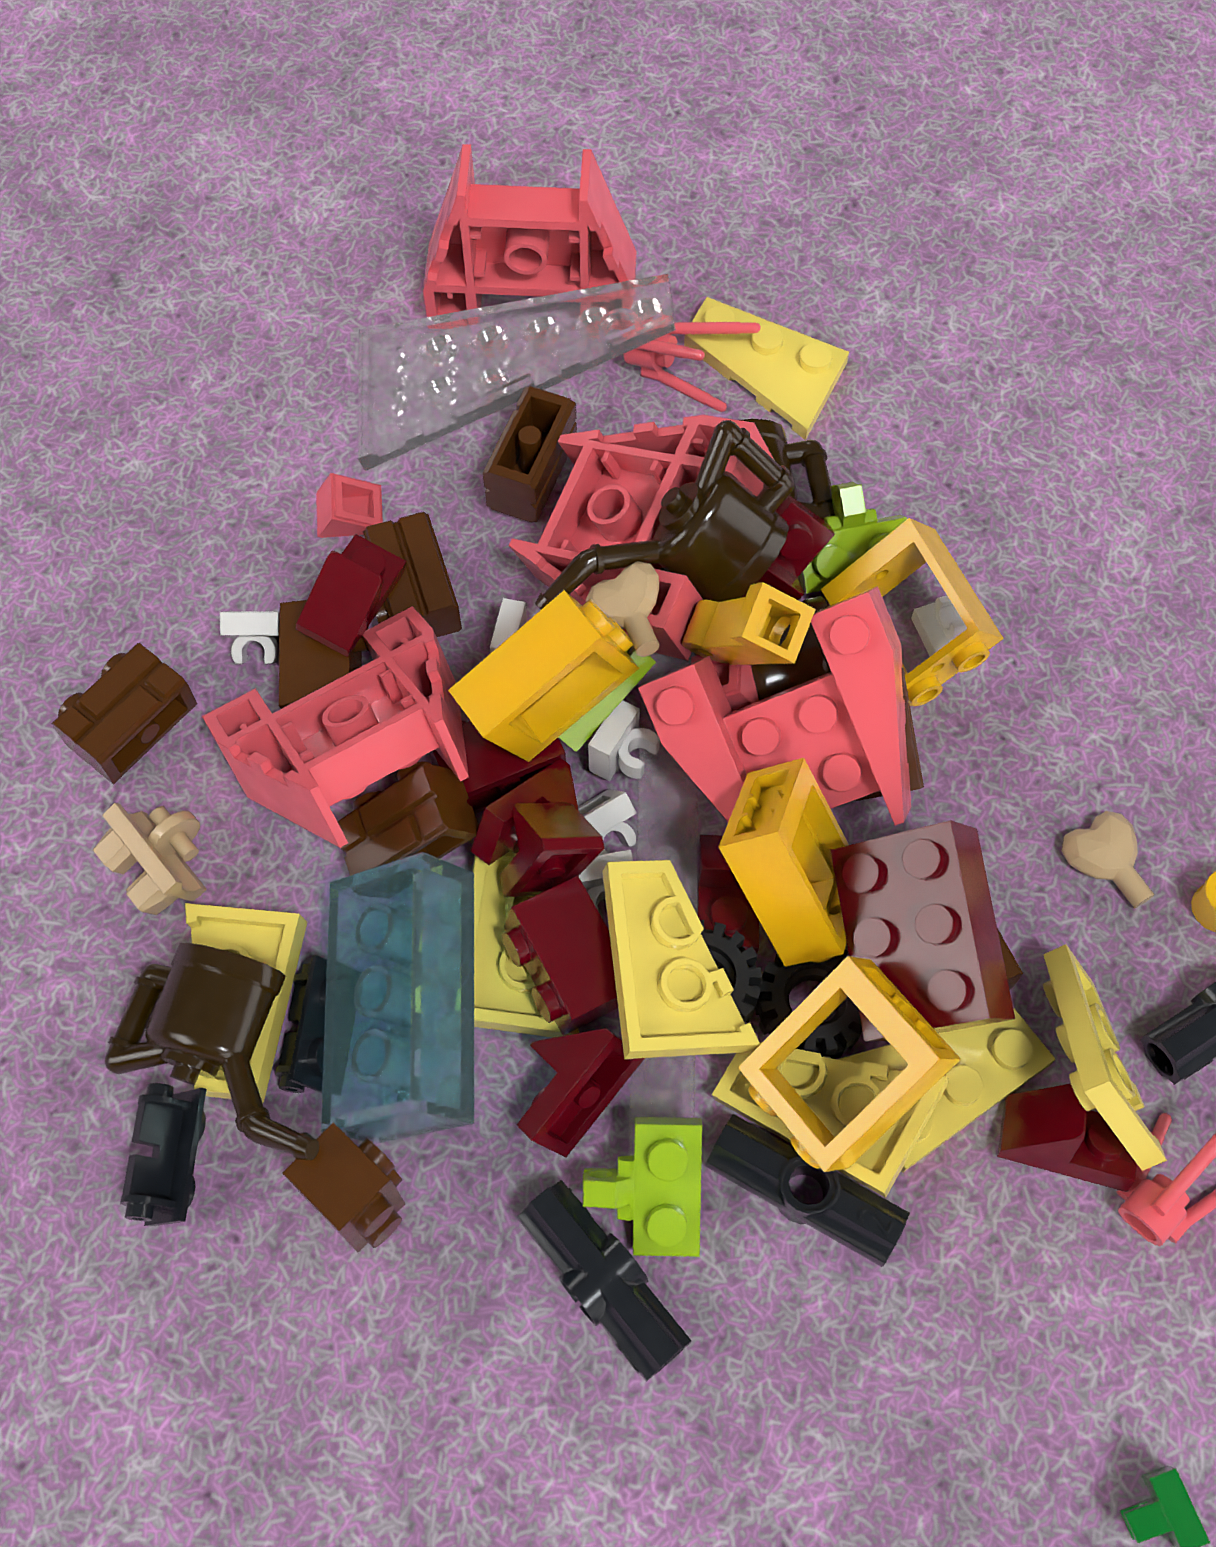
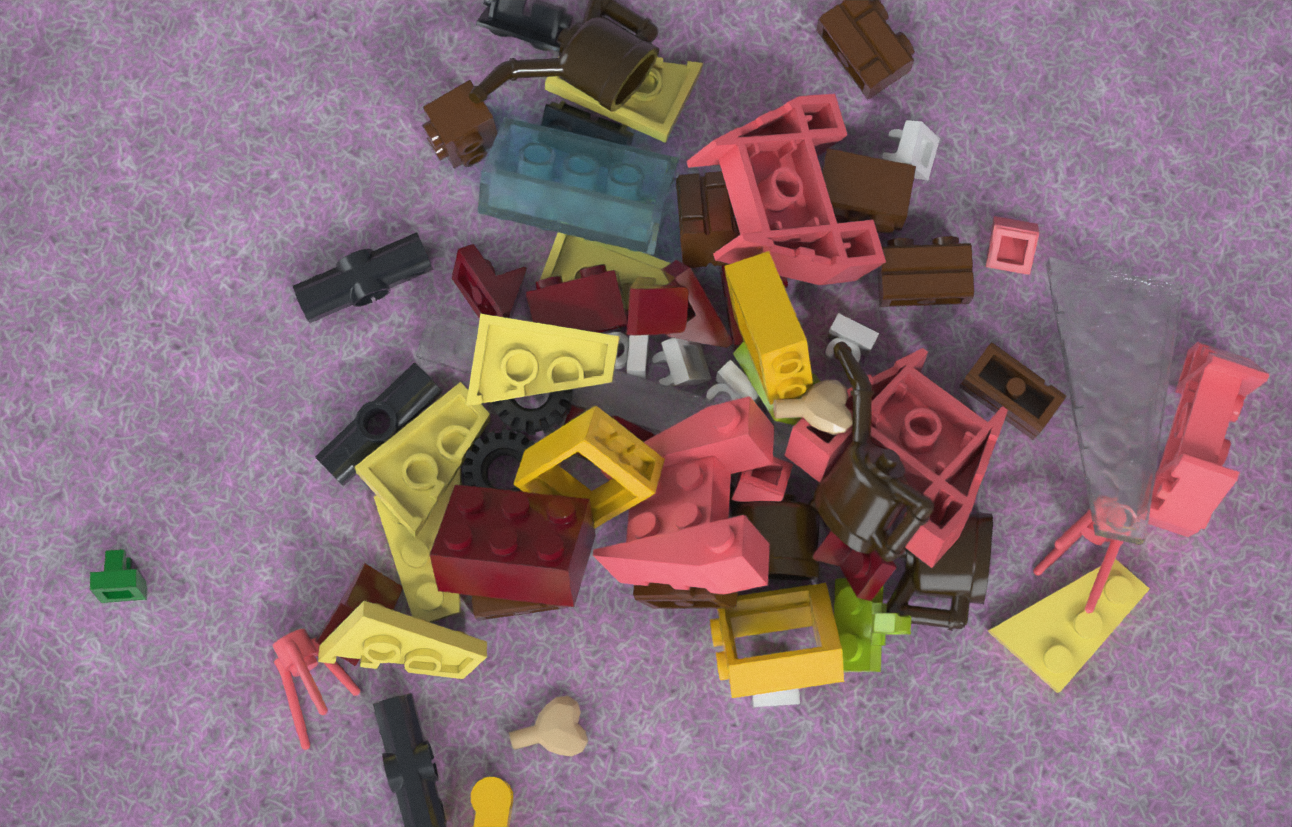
camera: 110 degrees right, 15 degrees up
(161, 847) = (746, 48): tan hips -> none
(349, 594) = (902, 216): dark red slope -> none
(655, 1186) = (408, 324): lime hinge -> none
(749, 628) = (764, 481): yellow leg -> none
(894, 1018) = (425, 498): yellow window -> none

